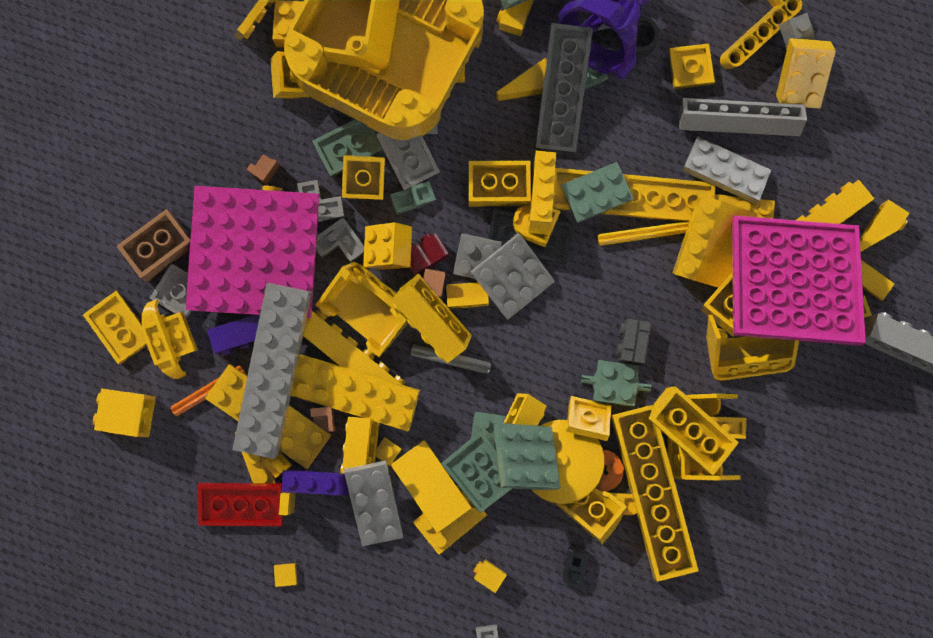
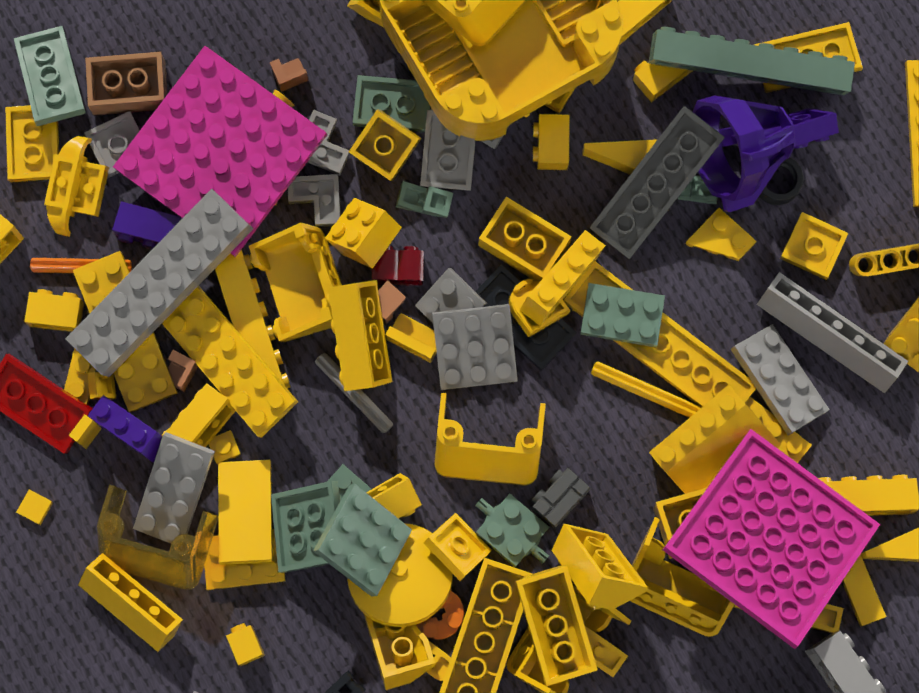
camera: 30 degrees right, 5 degrees down
(99, 274) = (49, 76): none -> sand green plate
(211, 433) = (54, 311): none -> yellow brick
(393, 597) = (130, 602): none -> yellow brick
(413, 552) = (176, 567): none -> clear yellow windscreen
(473, 104) = (553, 142): none -> yellow brick
(551, 359) = (487, 462): none -> yellow windscreen
(626, 97) = (722, 237): none -> yellow wing
(694, 373) = (597, 567): none -> yellow slope

